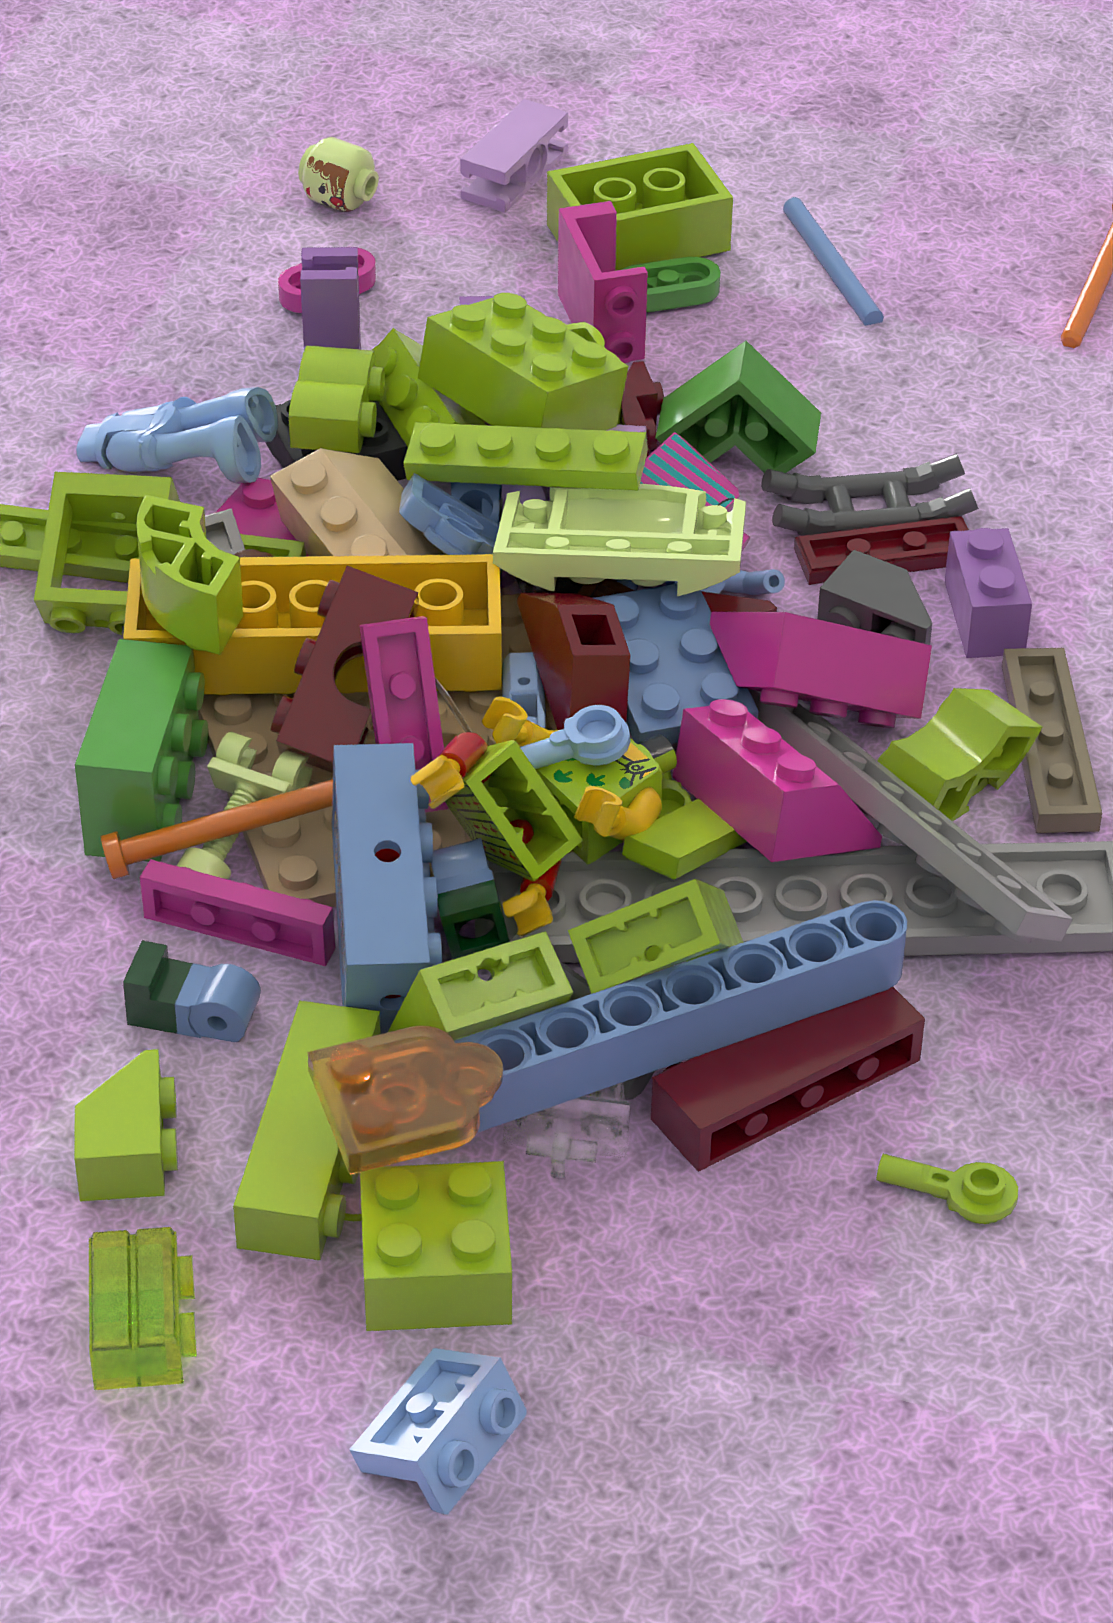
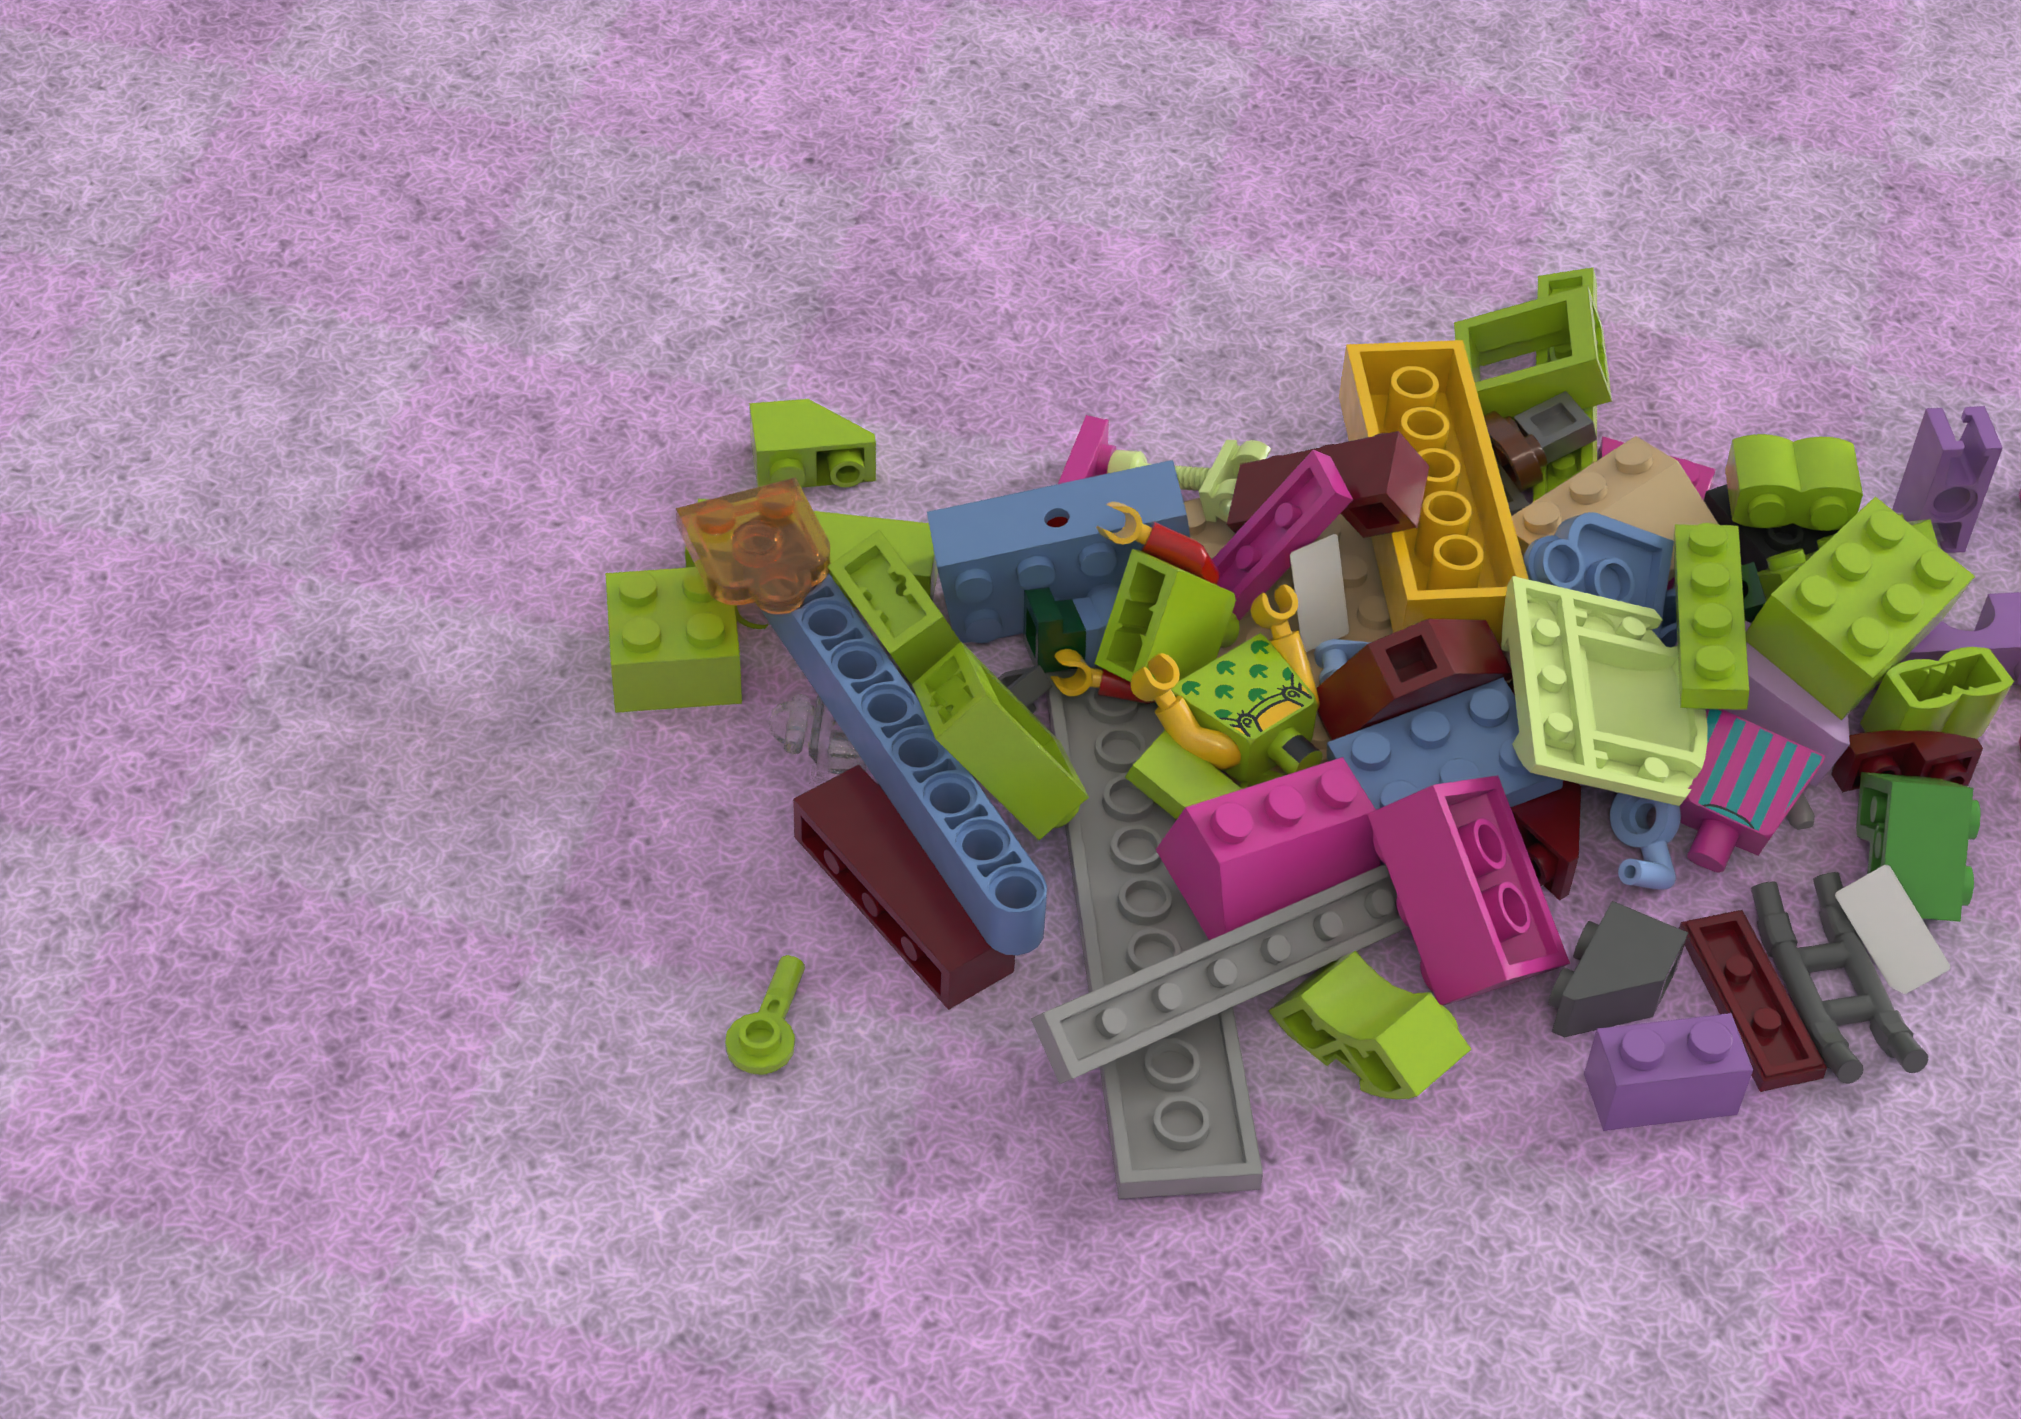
camera: 85 degrees right, 5 degrees up
(136, 1308) = (614, 468): clear neon green brick -> none
(141, 743) = (1248, 390): bright green brick -> none
(182, 429) = (1732, 389): light blue piece -> none
(185, 577) = (1396, 346): lime brick -> none
(188, 996) = (972, 461): leg -> none
(212, 827) = (1129, 411): orange bar -> none
(443, 1425) = (487, 660): light blue bracket -> none
(591, 736) = (1263, 671): light blue plate -> none
(828, 450) = (1892, 930): none -> white sticker
(1058, 763) = (1439, 1132): dark tan plate -> none

